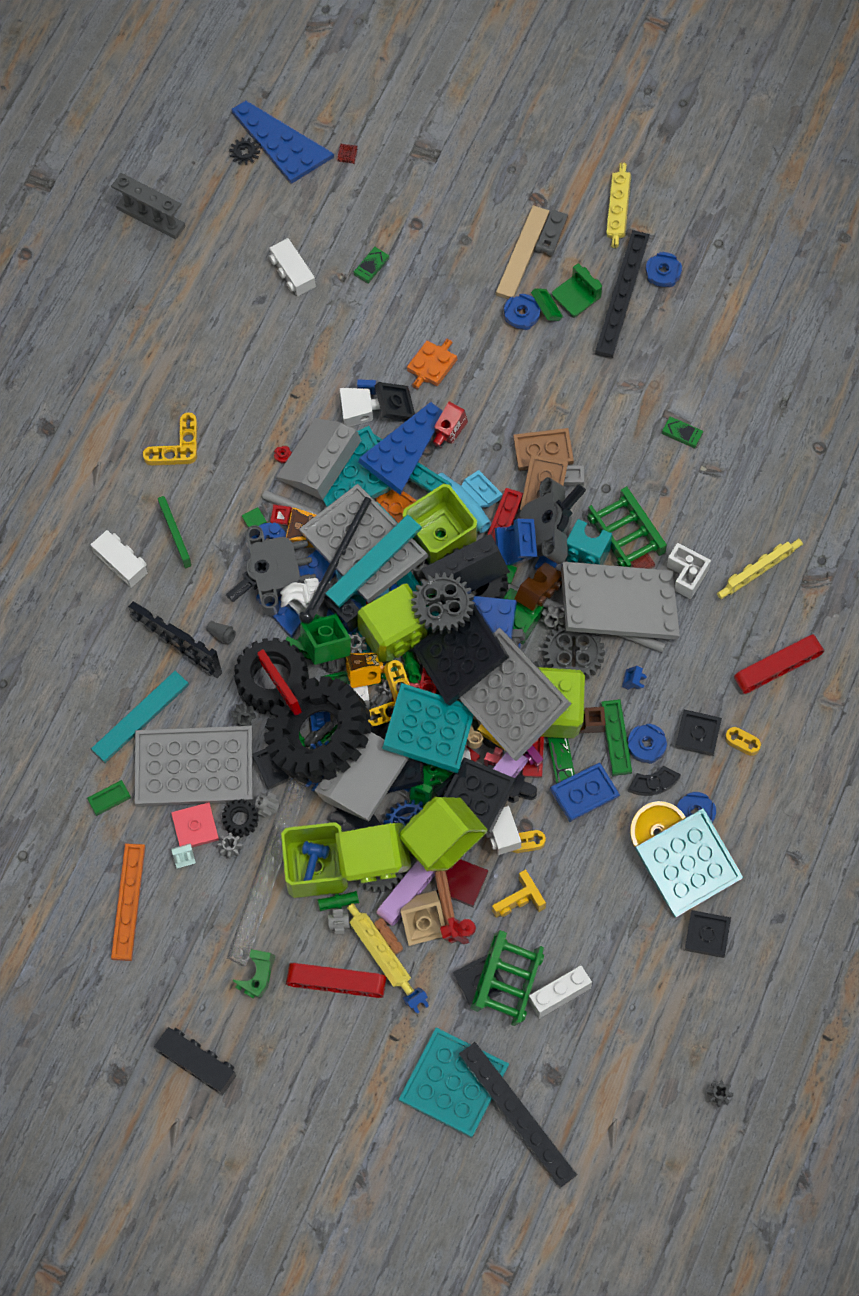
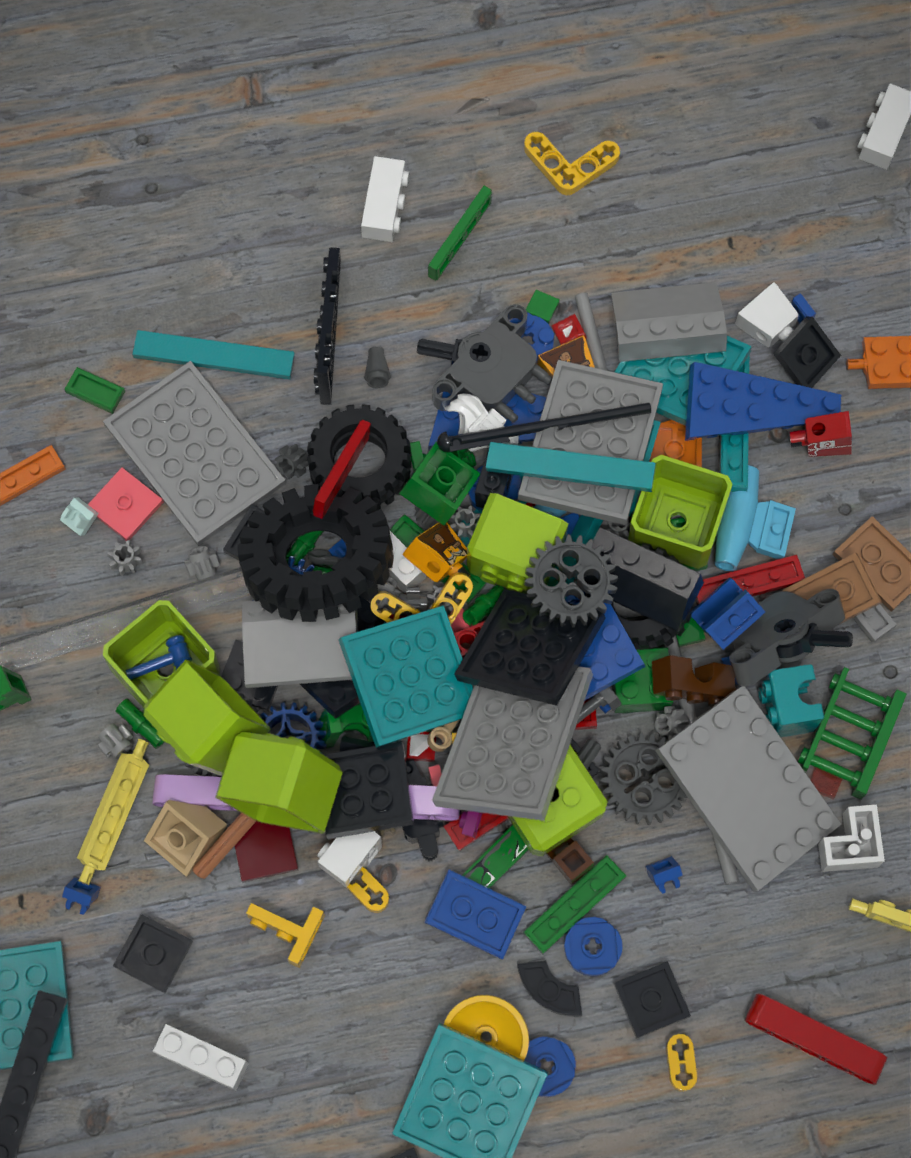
camera: 50 degrees right, 5 degrees up
(231, 810) = (160, 531): black tyre -> none
(282, 458) = (648, 273): red plate -> none
(336, 980) = (43, 788): red beam -> none
(388, 936) = (138, 810): nougat axle -> none
(458, 930) = (192, 884): red hips -> none
(487, 981) = (152, 963): green fence -> none

